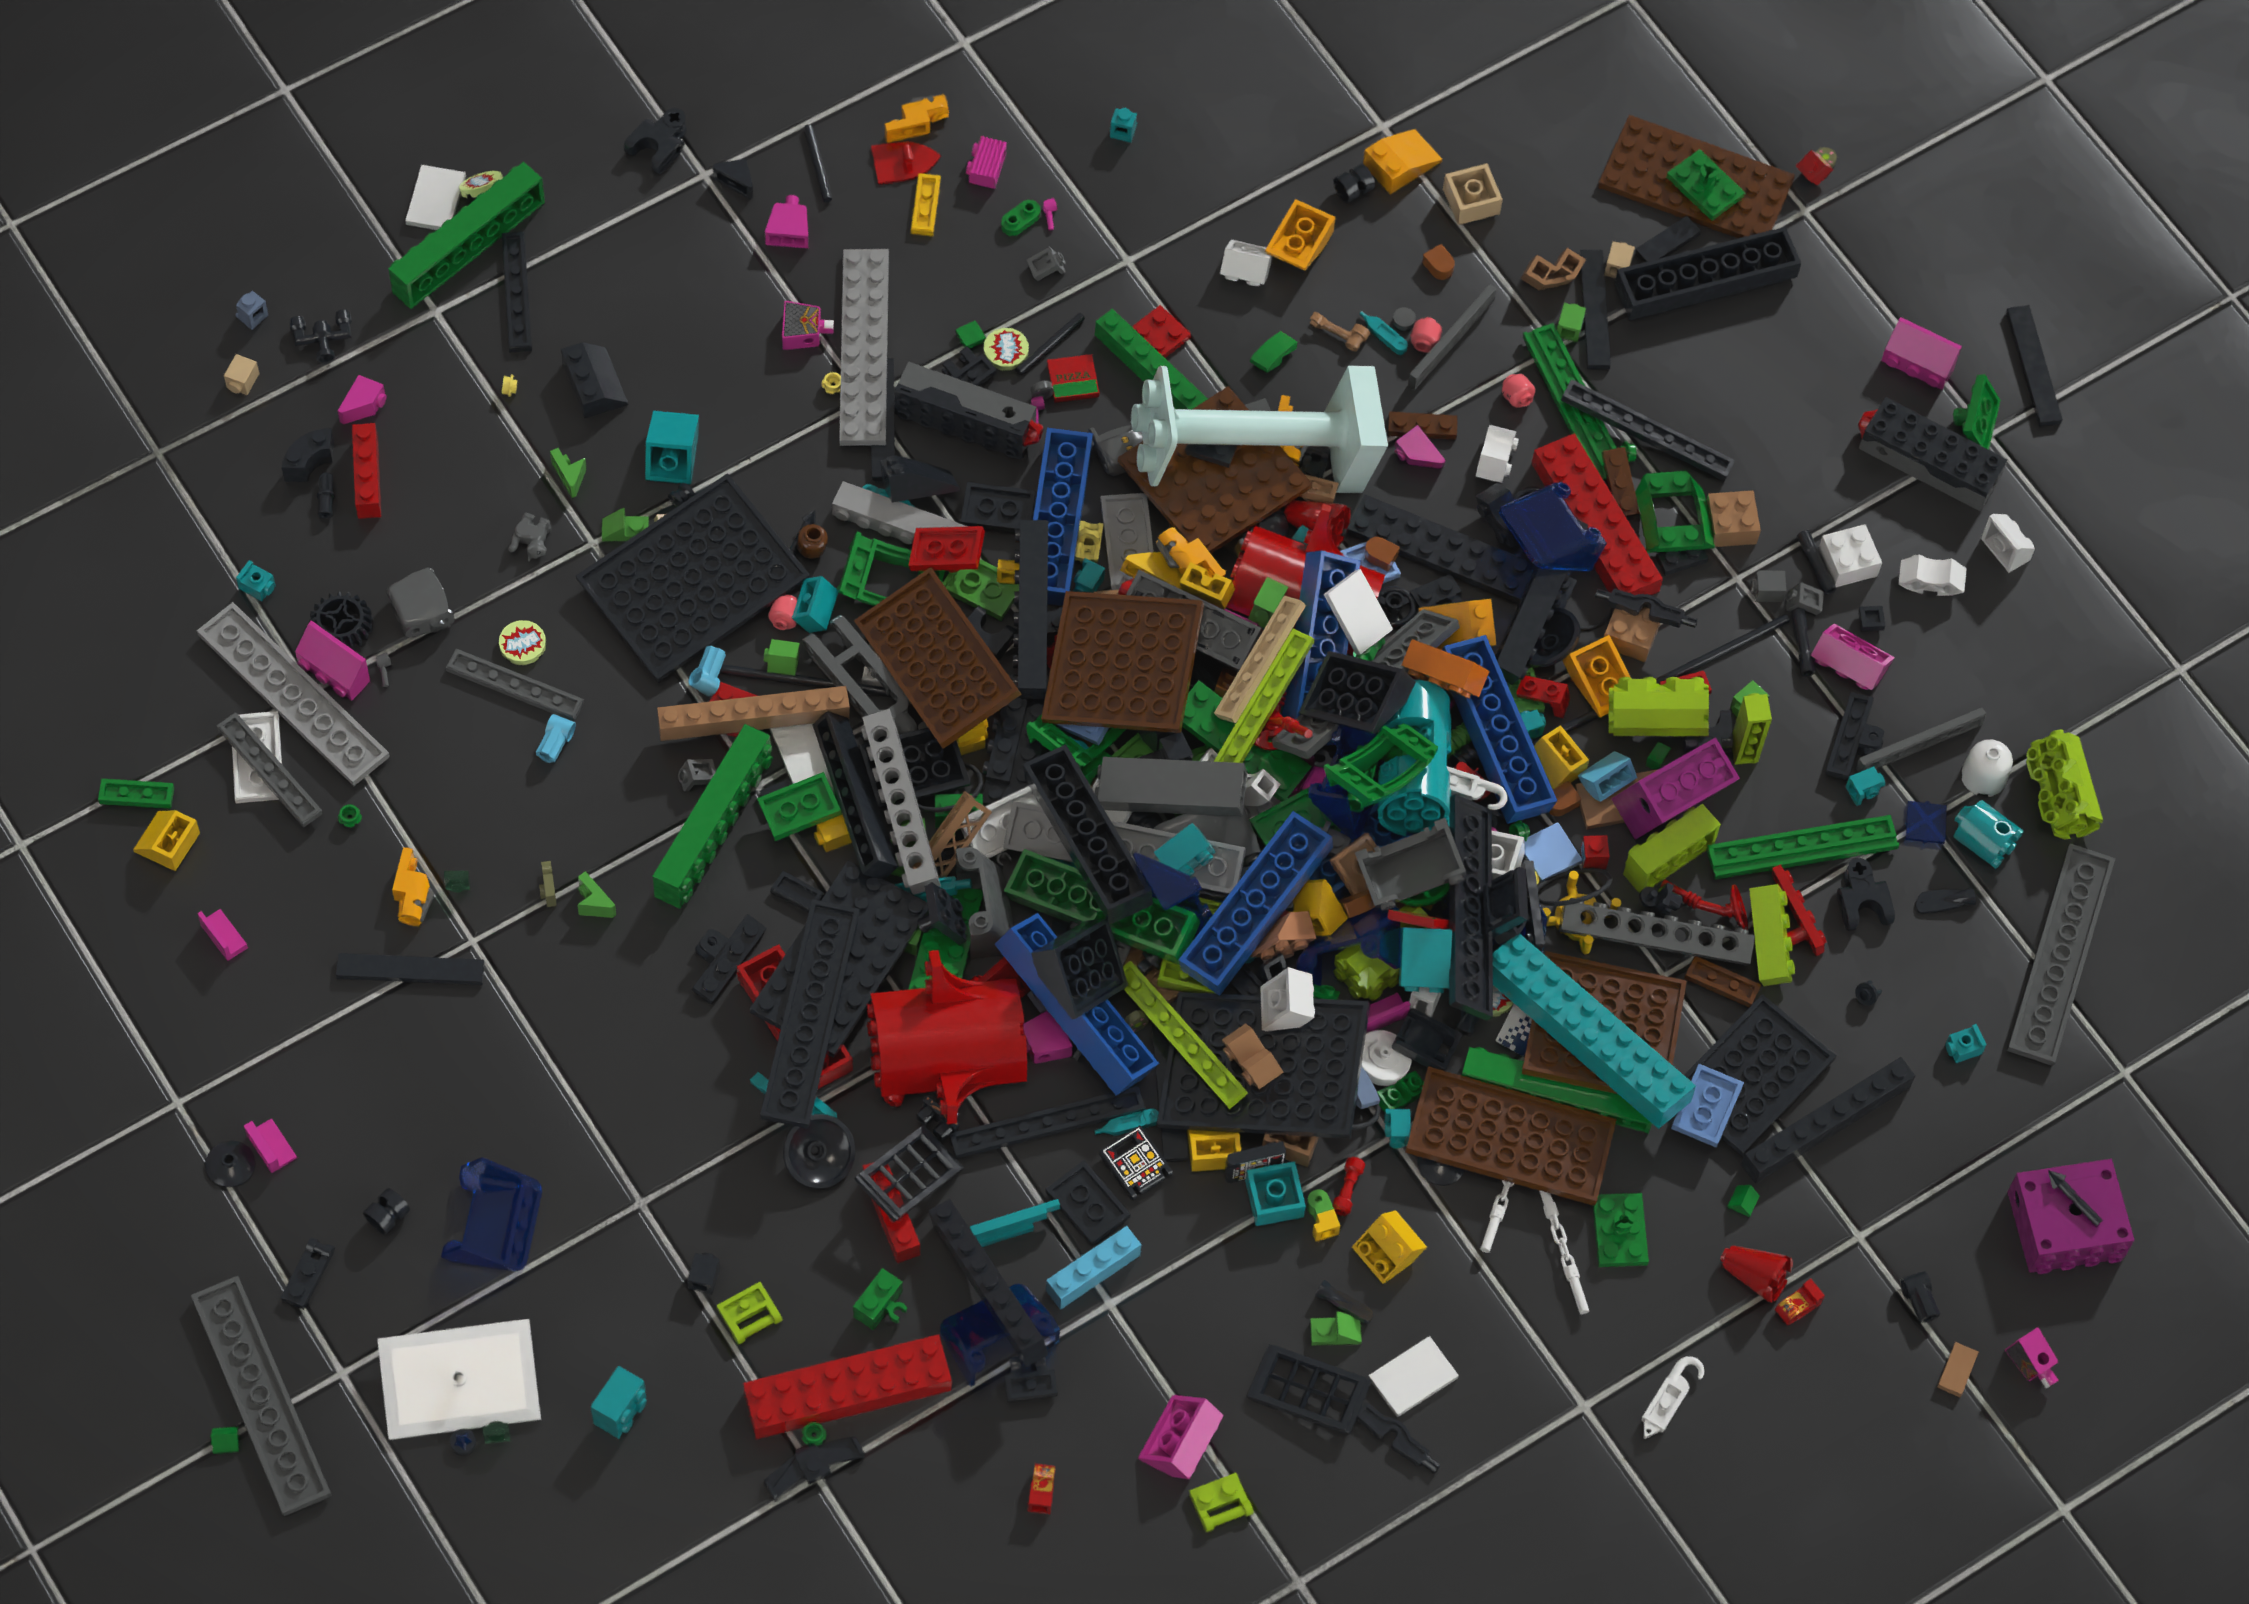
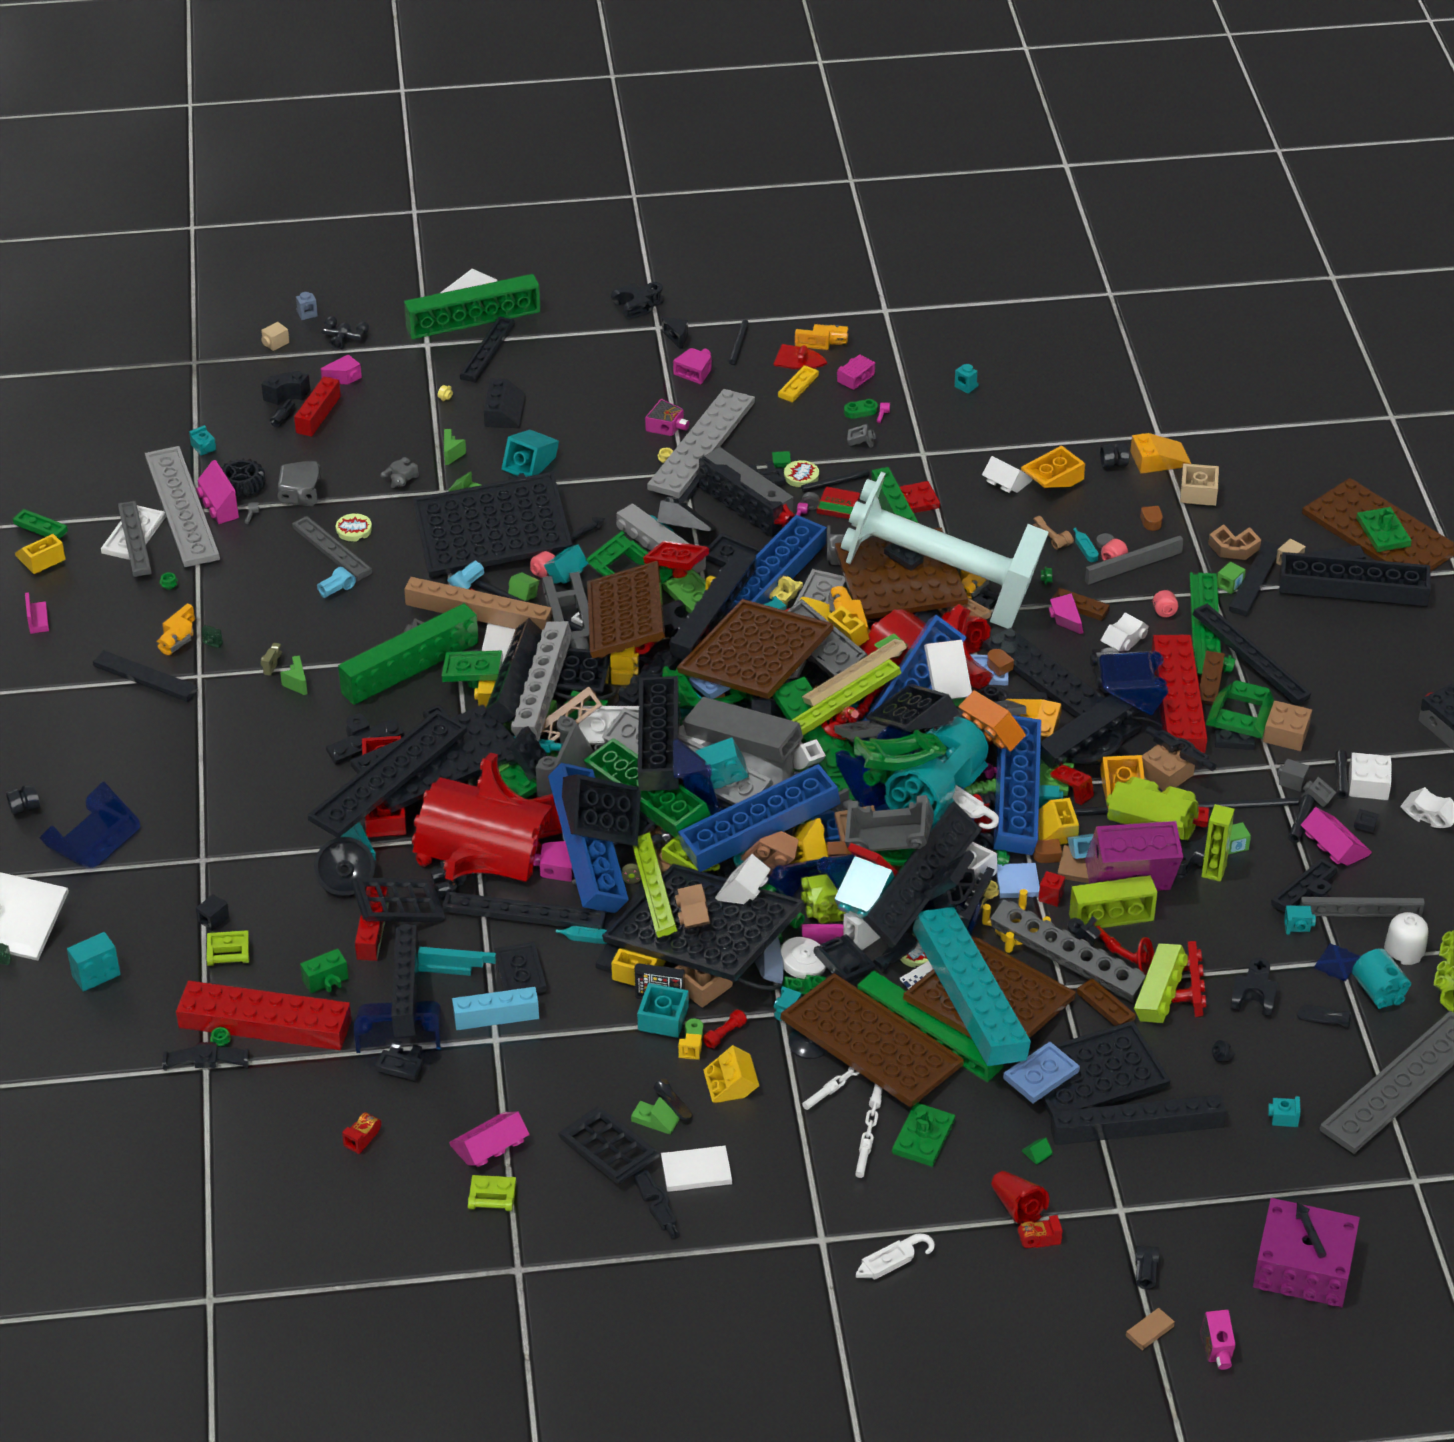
camera: 30 degrees right, 20 degrees down
(812, 541) = (588, 530): reddish brown head -> none
(1138, 1166) = (572, 960): black container -> none
(1271, 352) = (991, 529): green slope -> none
(1580, 899) = (1016, 898): black piece -> none
(1802, 847) = (1225, 941): green plate -> none

